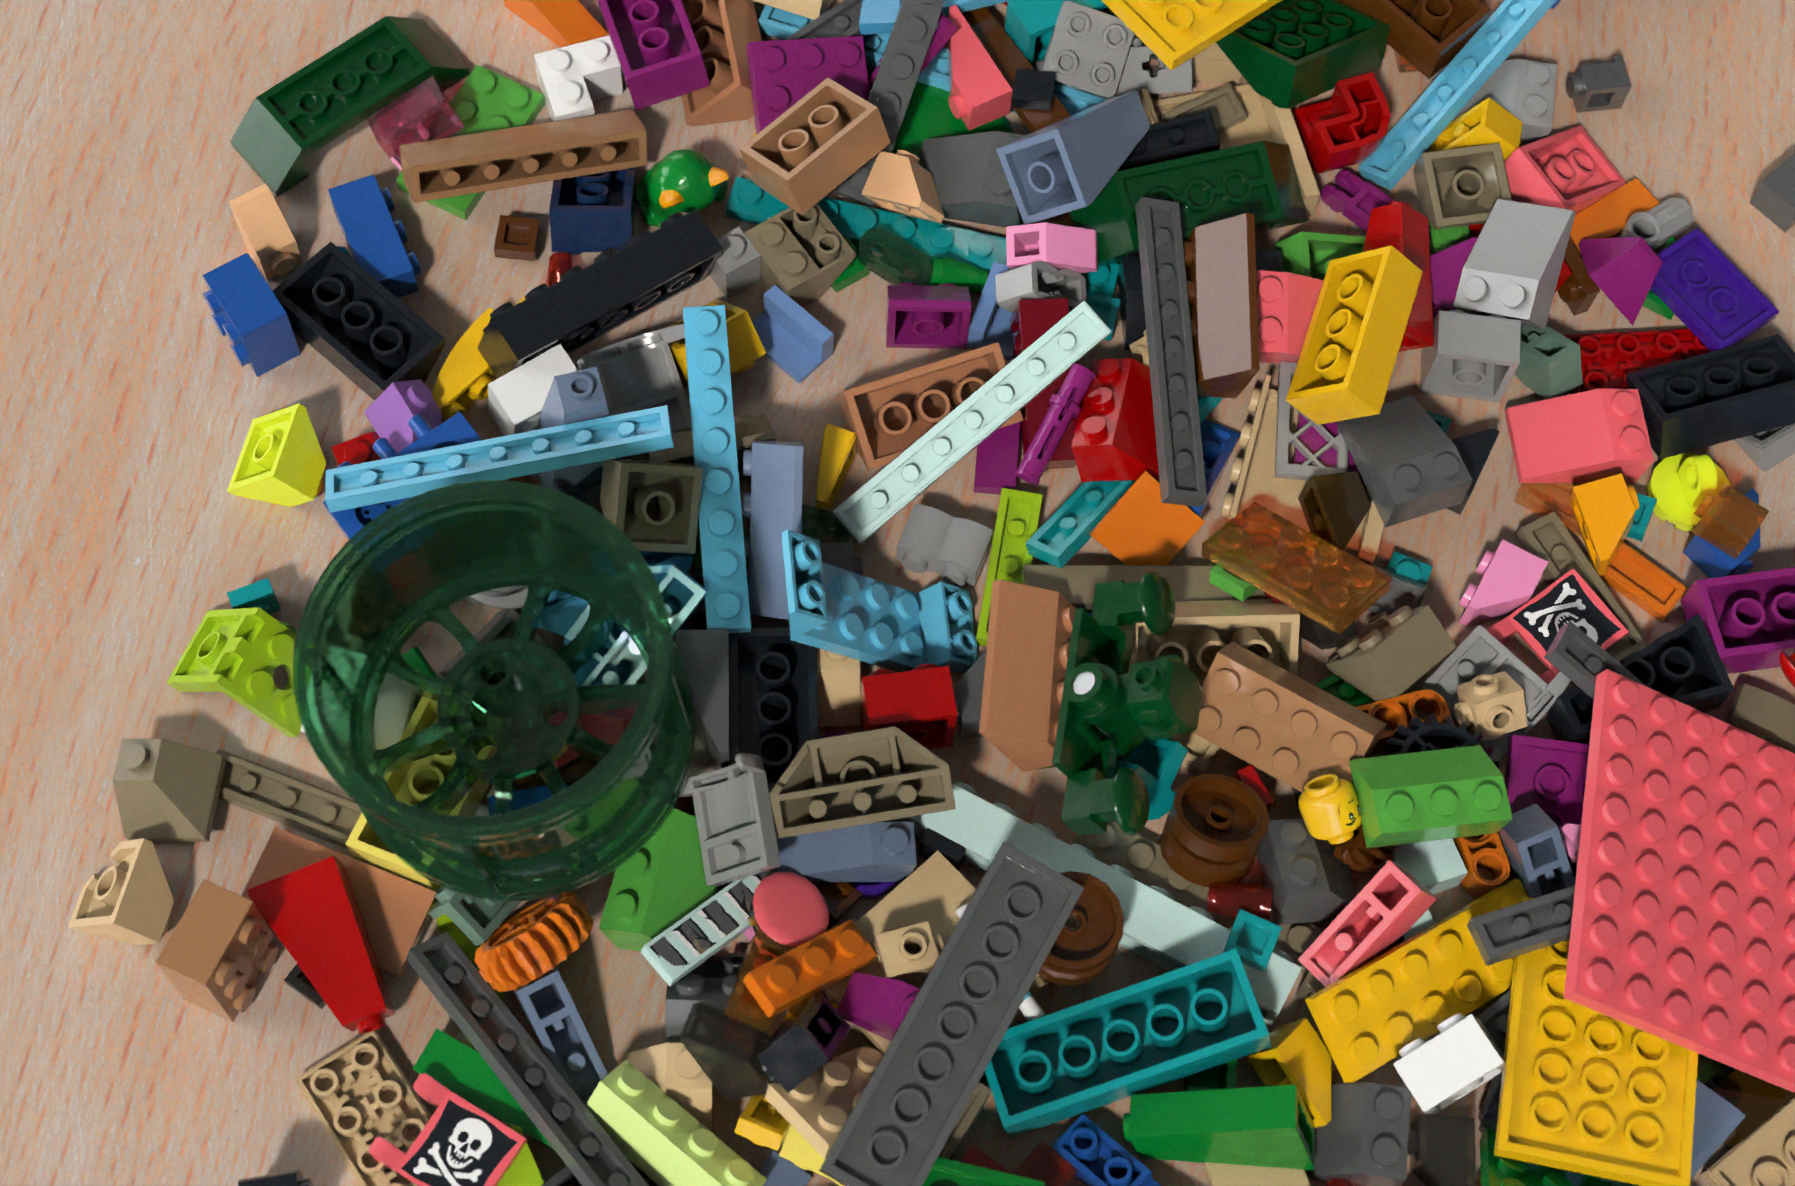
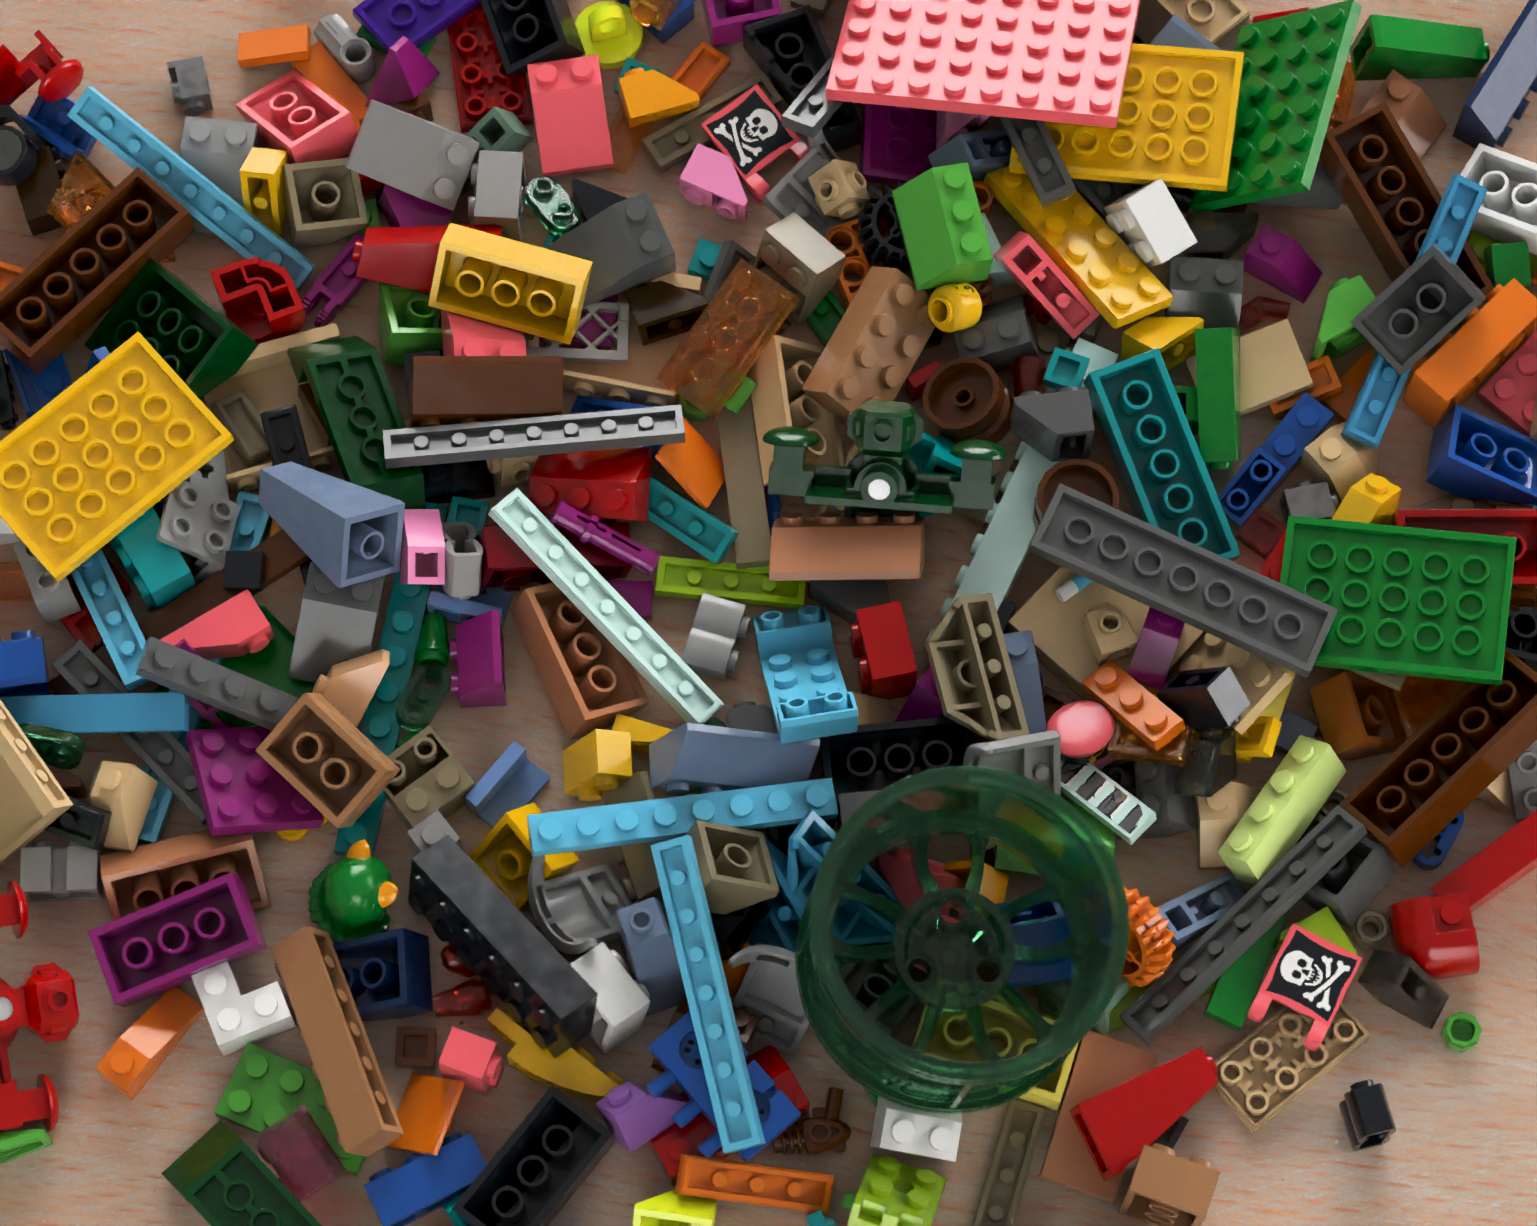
camera: 90 degrees left, 5 degrees up
(312, 530) = (754, 1183): none -> orange tile
(441, 238) = (426, 1113): none -> orange piece
(486, 271) = (471, 1061): none -> coral brick
(796, 408) = (597, 764): none -> yellow brick
(1175, 914) = (1054, 423): none -> dark grey slope
(1471, 414) = (552, 205): none -> clear green plate
(1652, 162) = (274, 46): none -> orange tile

